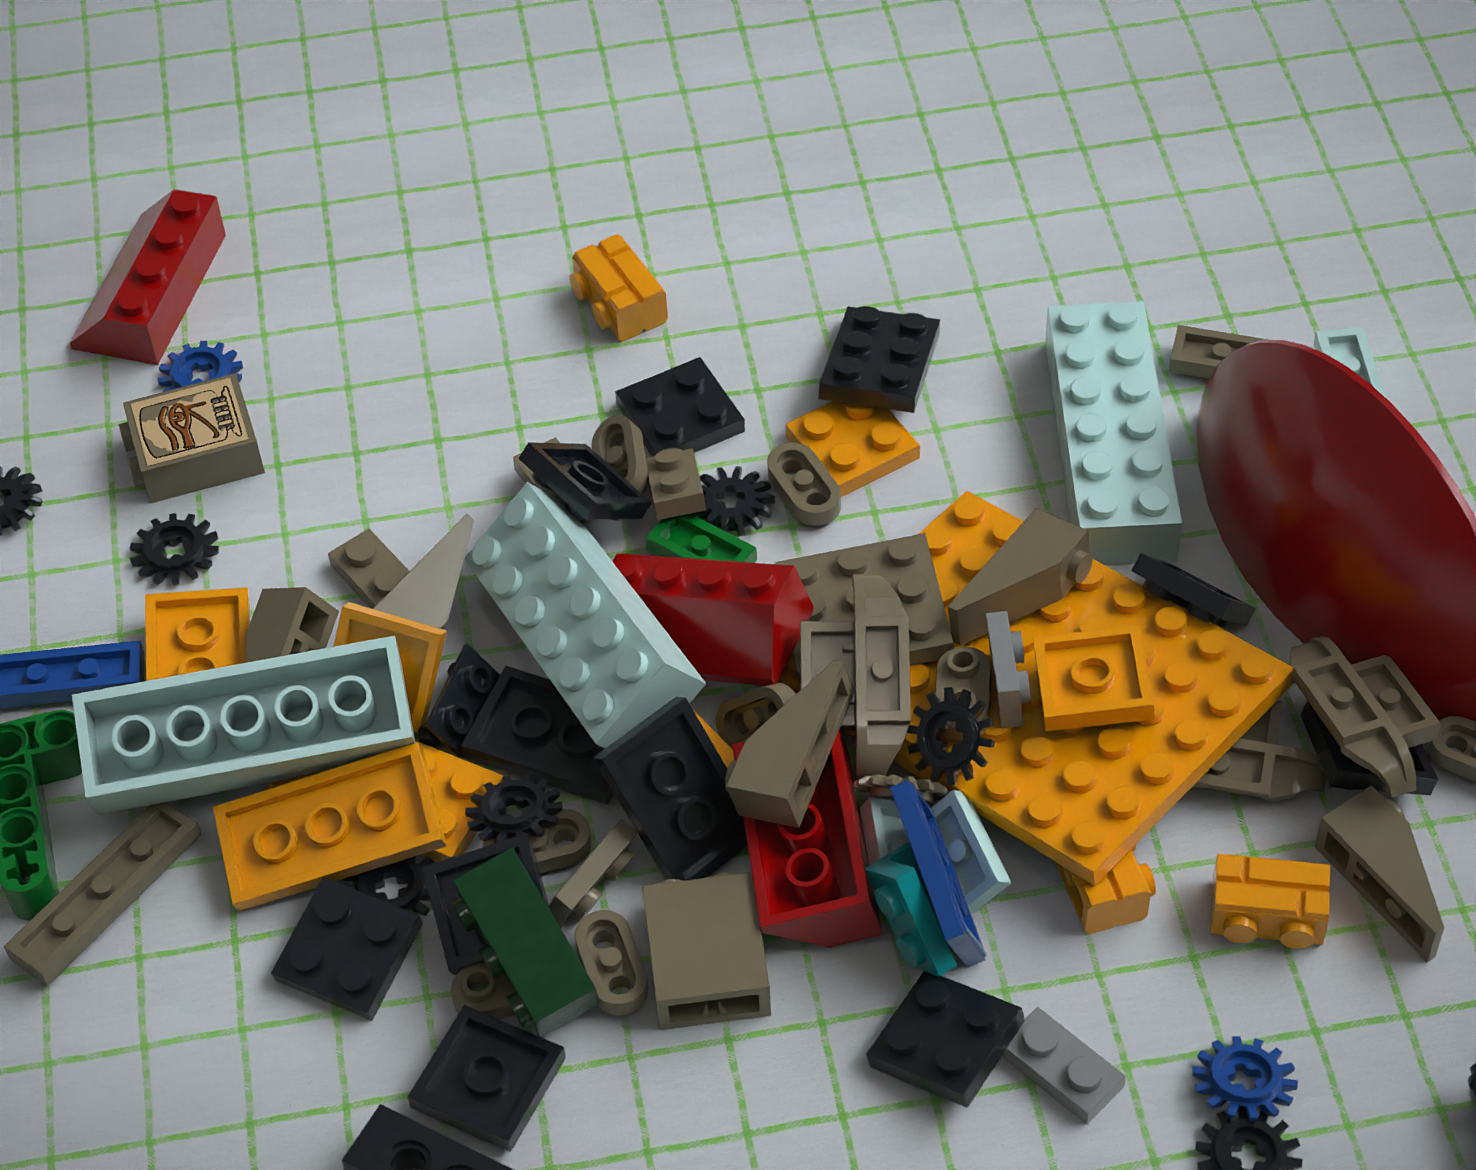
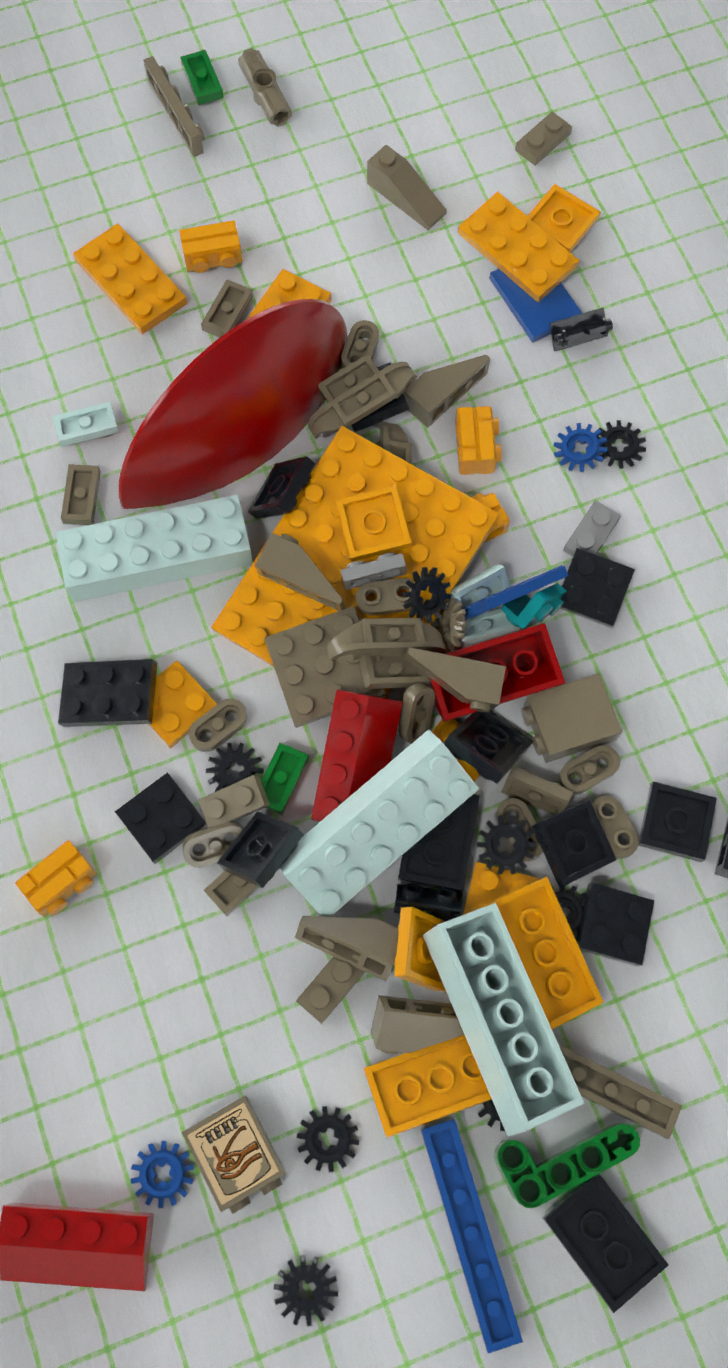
camera: 105 degrees left, 20 degrees up
(524, 943) = (608, 809): dark green brick -> none

